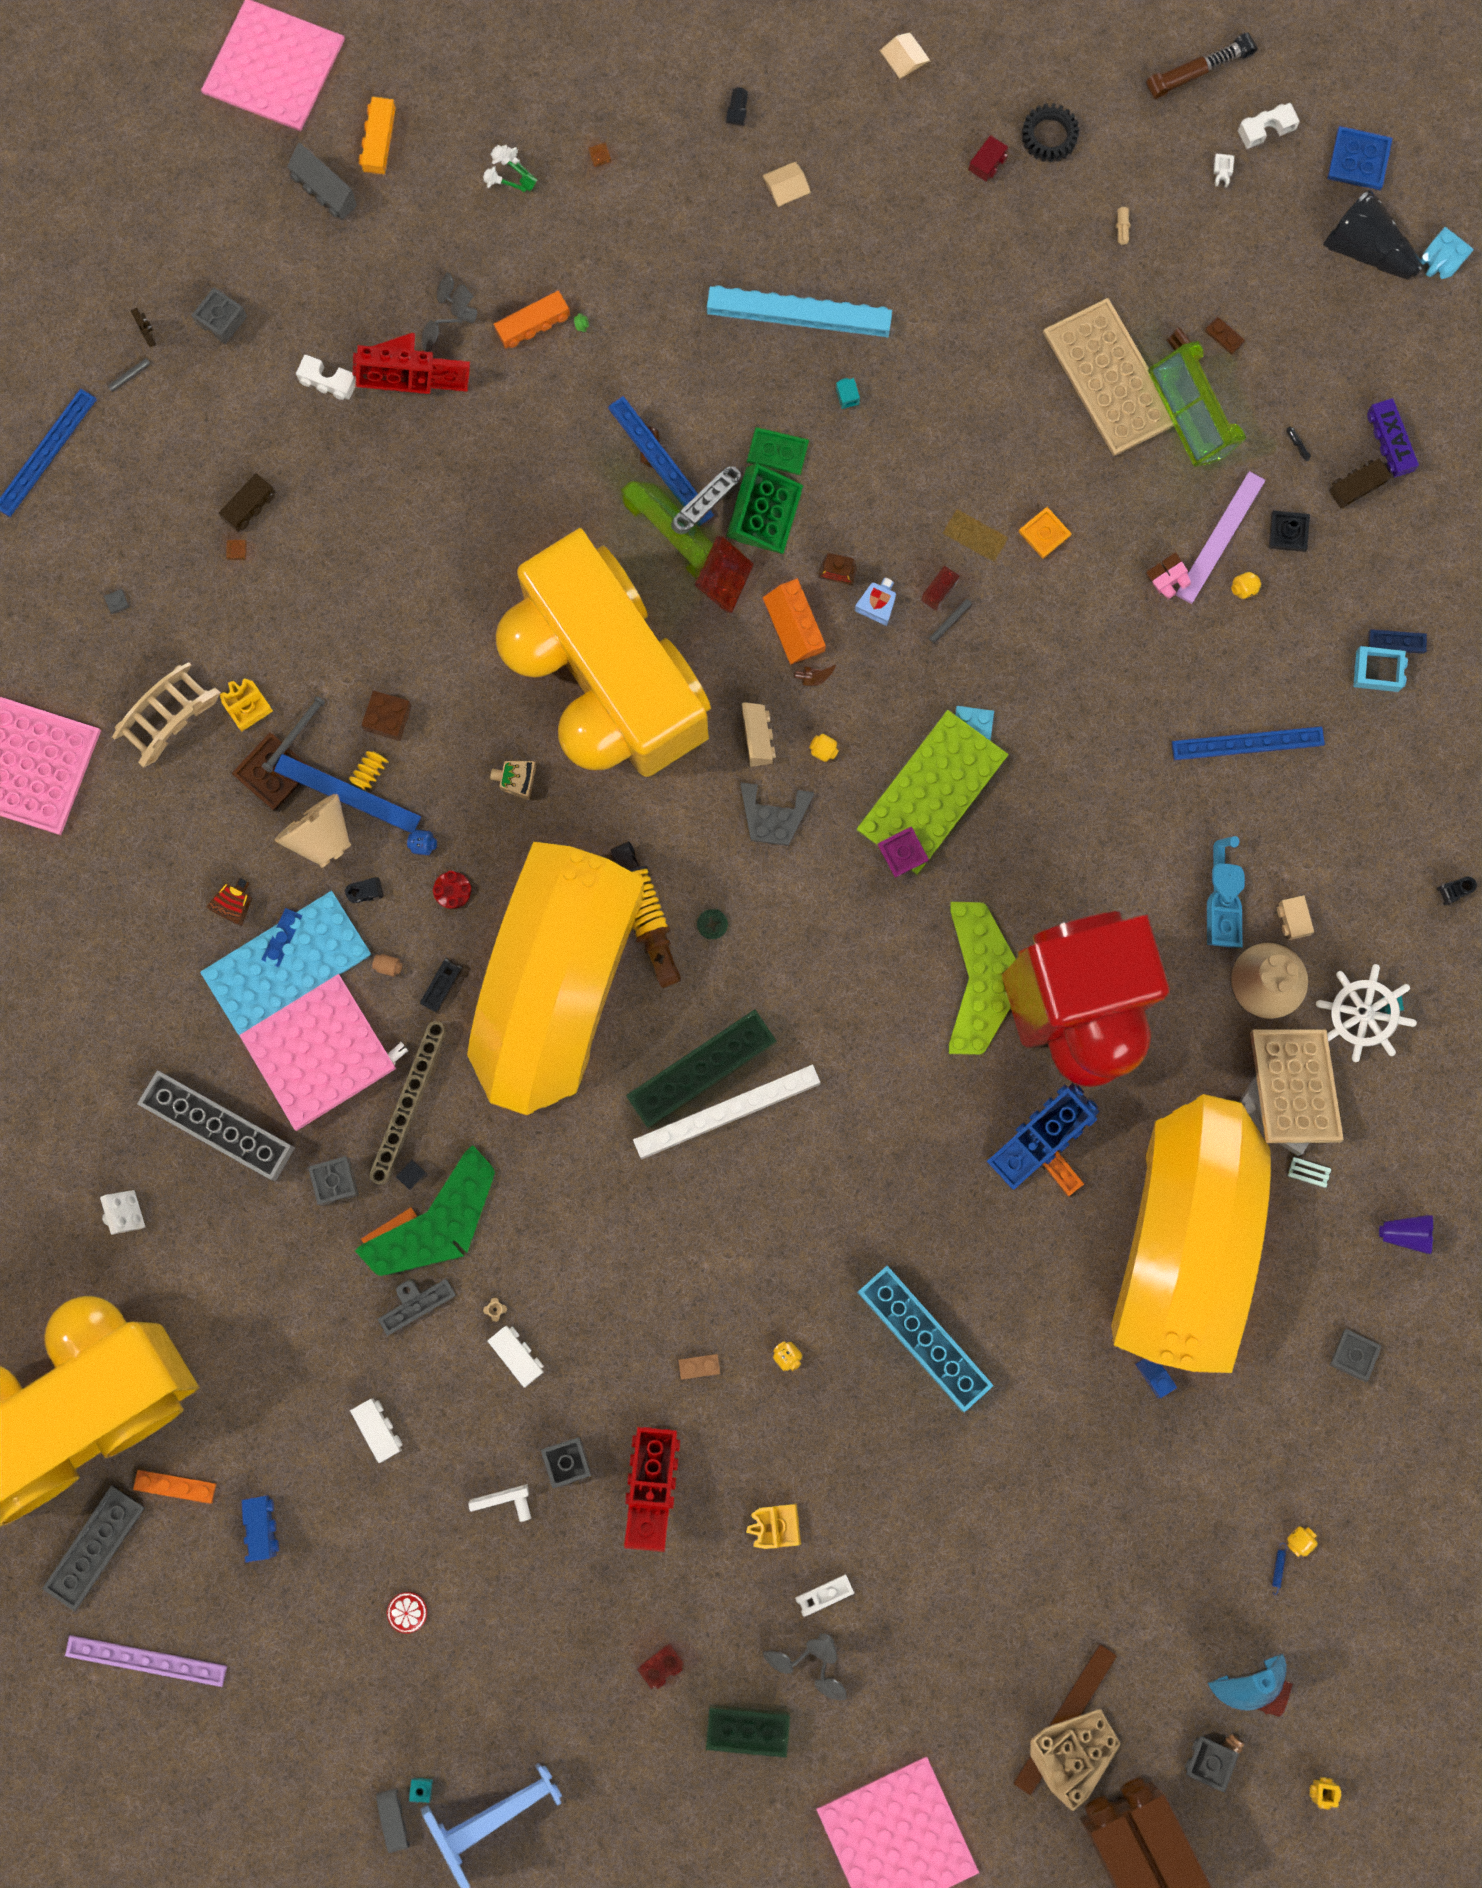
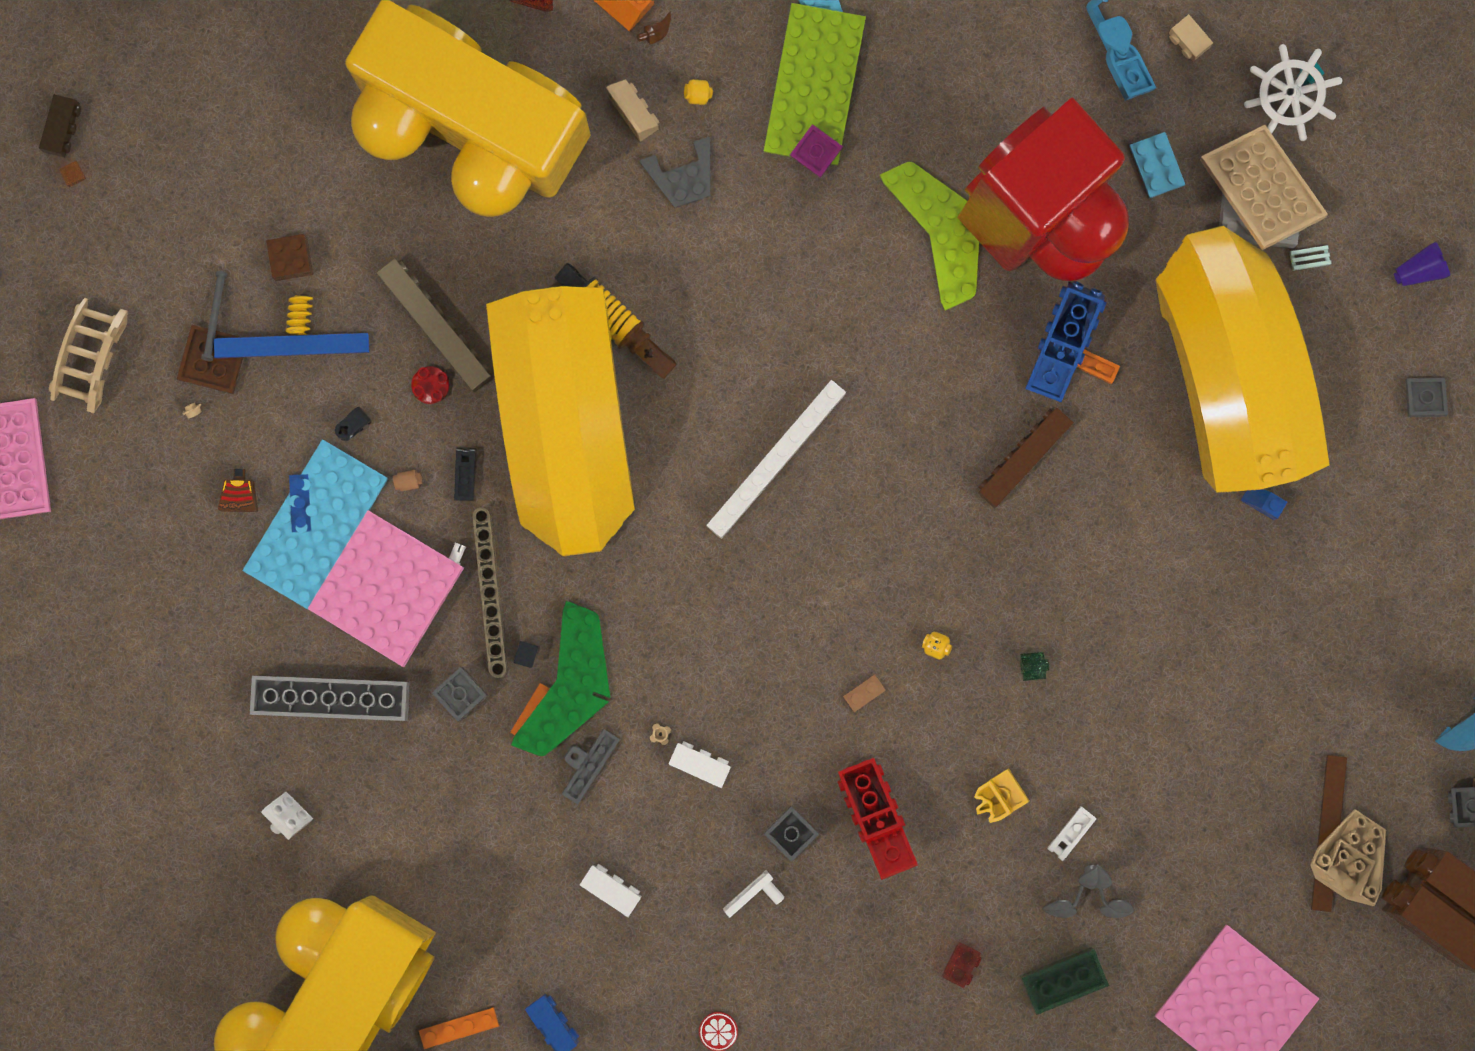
camera: 25 degrees left, 5 degrees up
(231, 808) = (192, 410): none -> tan plate
(245, 704) = (155, 310): yellow plate -> none
(319, 833) = (285, 393): tan cone -> none
(421, 842) = (381, 355): blue head -> none
(482, 838) = (434, 325): none -> dark tan brick
(516, 778) = (435, 256): tan torso -> none
(701, 1069) = (735, 433): clear green brick -> none
(704, 920) = (678, 290): clear green gear -> none
(866, 1421) = (1033, 666): none -> clear green brick
(925, 1339) = (1049, 570): medium azure brick -> none
(955, 1224) = (1025, 458): none -> reddish brown brick
(1208, 1017) = (1157, 165): none -> medium azure plate
(1269, 980) = (1194, 105): tan cone -> none
(1279, 1567) = (1448, 613): blue piece -> none
(1302, 1541) = (1457, 580): yellow head -> none

